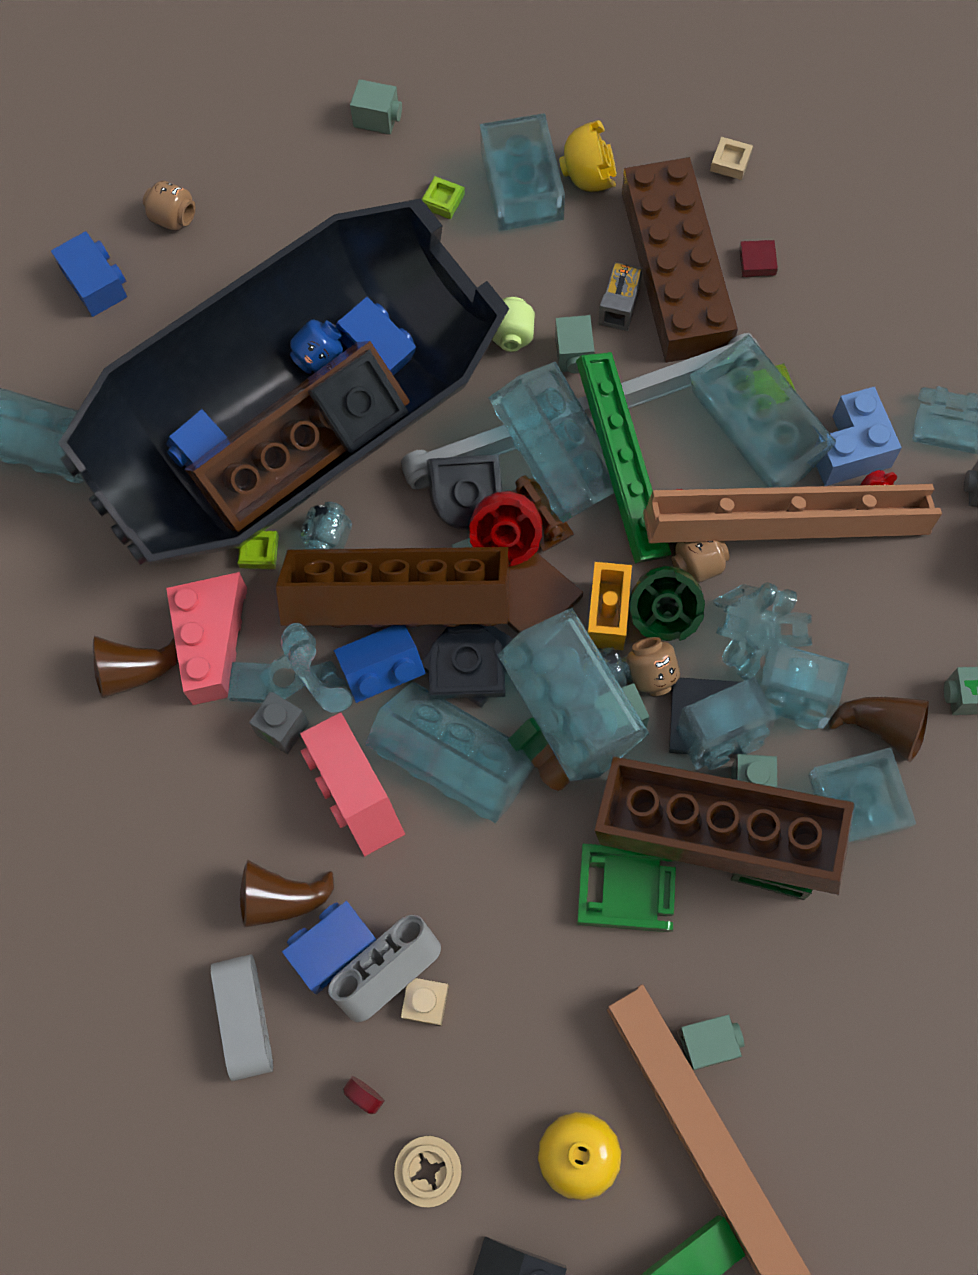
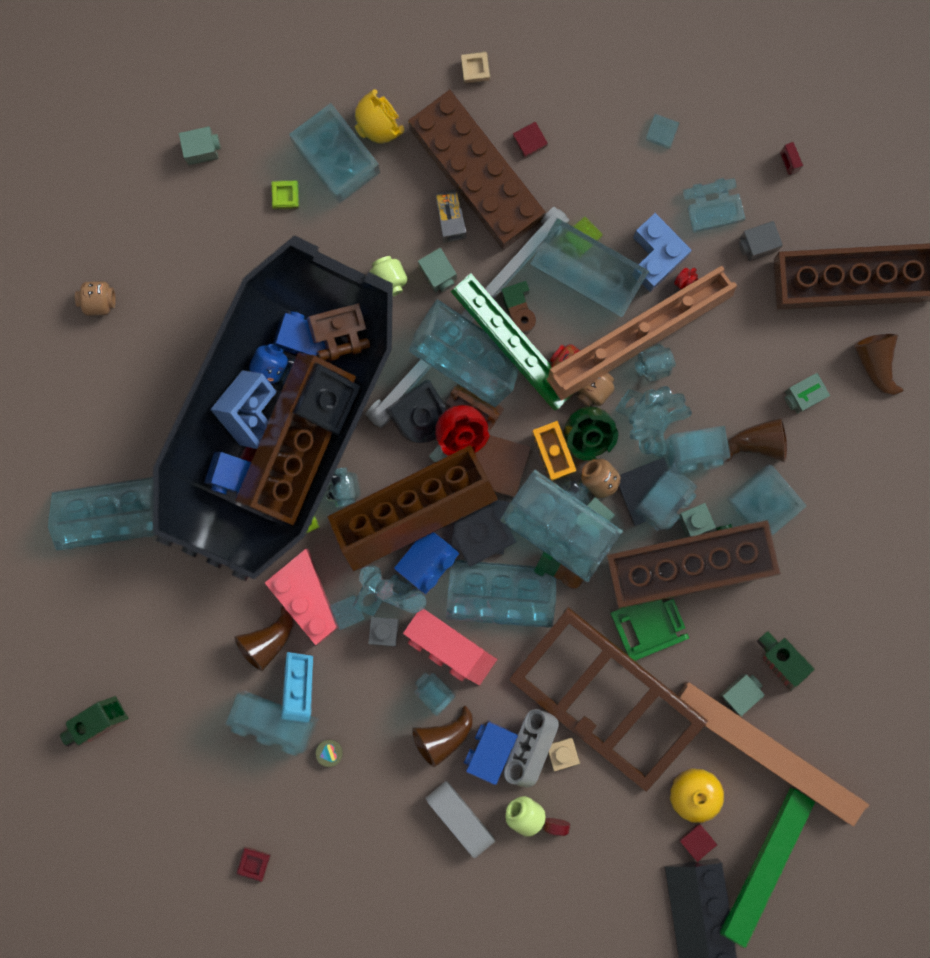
camera: 30 degrees left, 15 degrees up
(73, 762) = (263, 719): none -> clear light blue brick
(89, 273) = (70, 378): blue brick -> none
(126, 844) = (329, 753): none -> olive tile
(129, 732) = (297, 687): none -> medium azure tile
(254, 371) = (241, 408): none -> medium blue brick
(299, 831) = (434, 692): none -> clear light blue slope
(328, 1056) = (525, 816): none -> yellowish green head
(409, 1163) = (616, 861): tan gear -> none
(421, 336) = (336, 324): none -> reddish brown plate
(472, 975) = (585, 727): none -> reddish brown door
(548, 1225) = (698, 842): none -> dark red tile
(651, 413) = (517, 307): none -> leg
(792, 562) = (655, 363): none -> clear light blue head
(797, 1041) = (791, 671): none -> dark green torso
(924, 315) = (662, 131): none -> clear light blue tile

